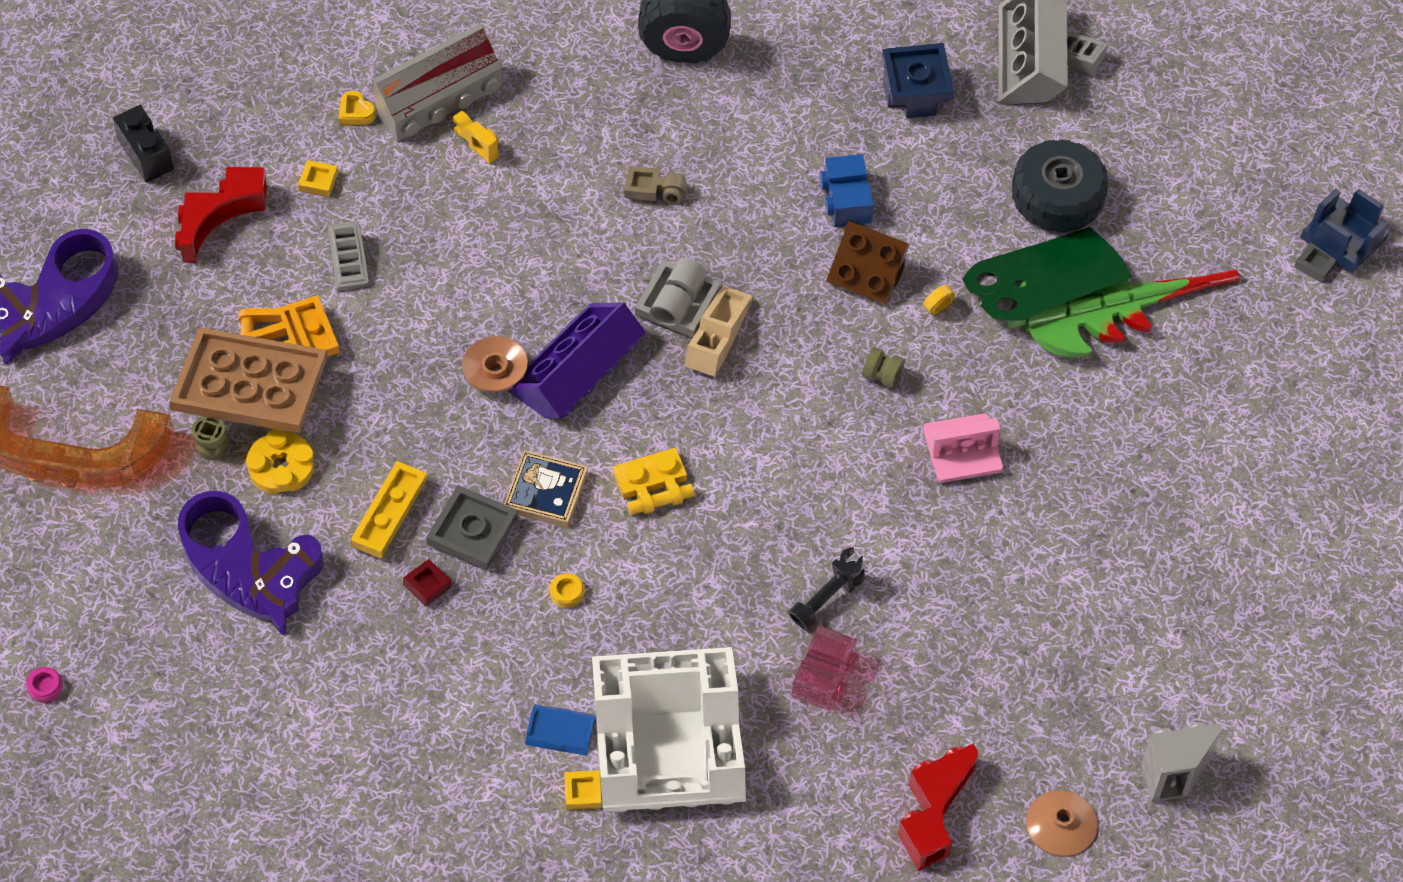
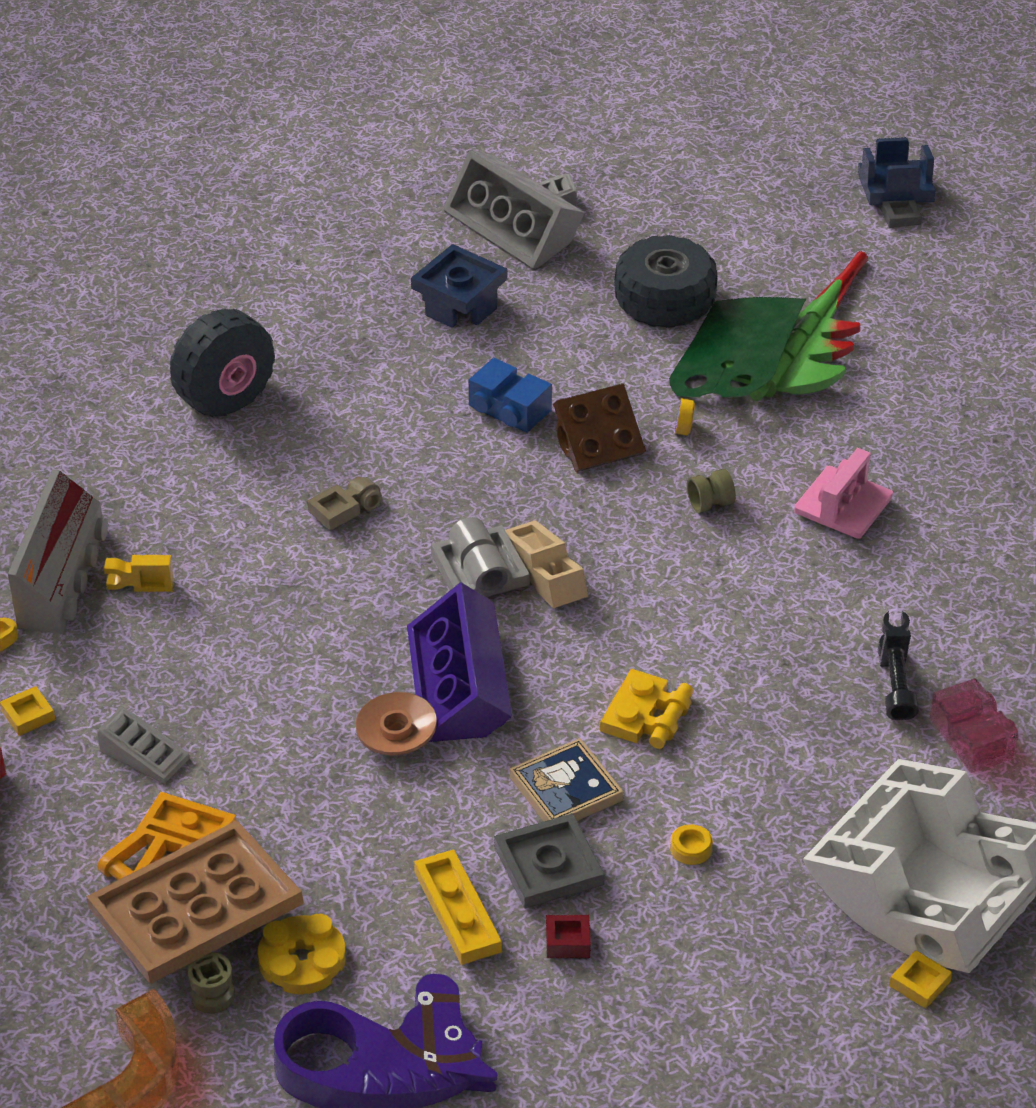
camera: 45 degrees left, 15 degrees down
(560, 729) = (835, 952): blue piece -> none

